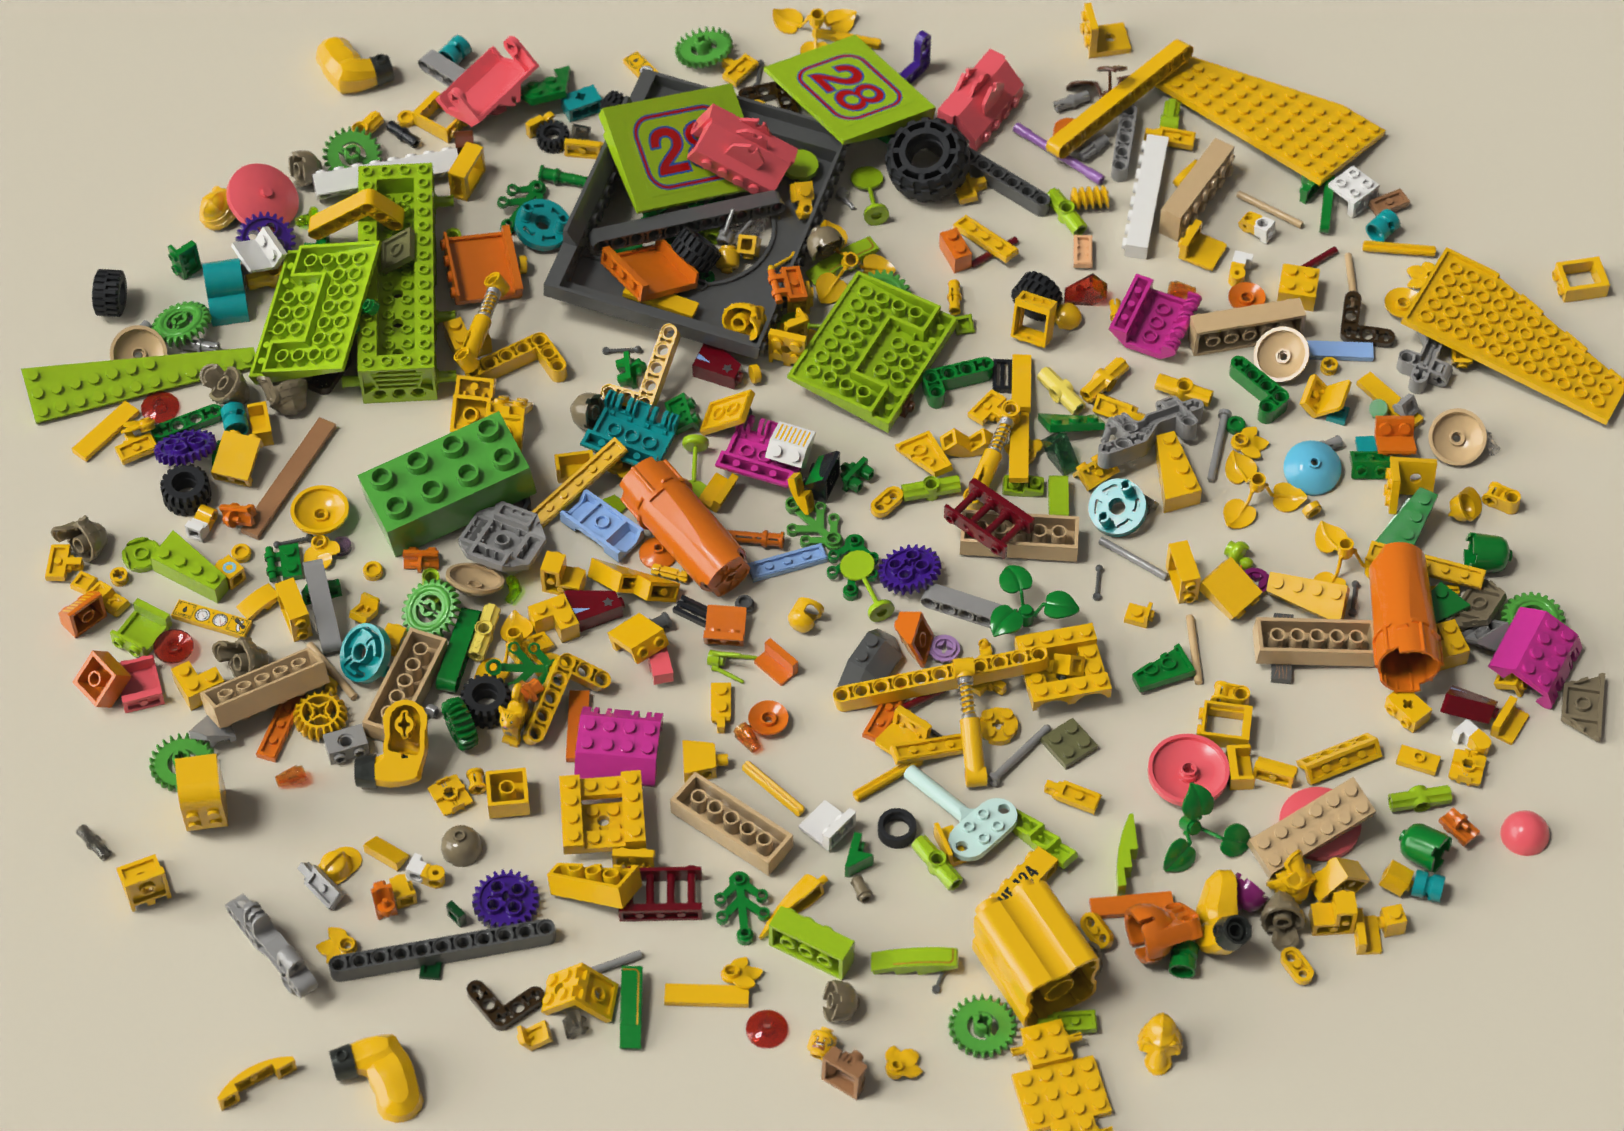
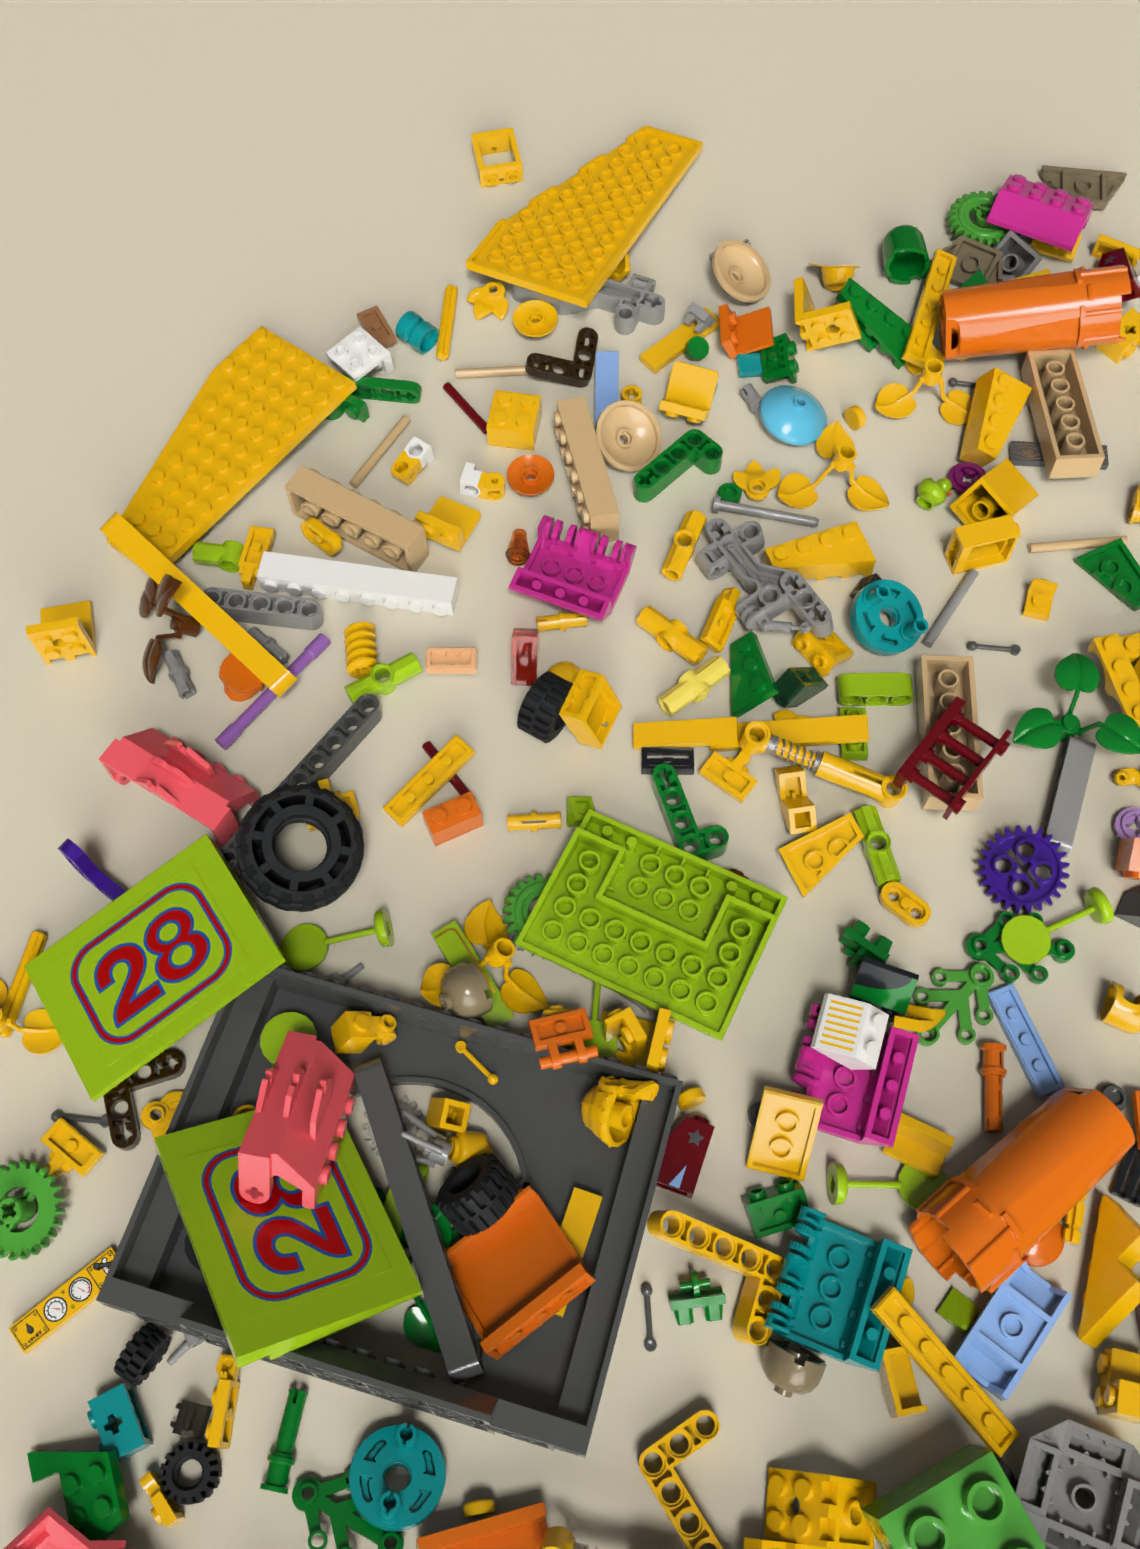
camera: 90 degrees left, 10 degrees up
(1502, 498) = (816, 239): yellow piece -> none

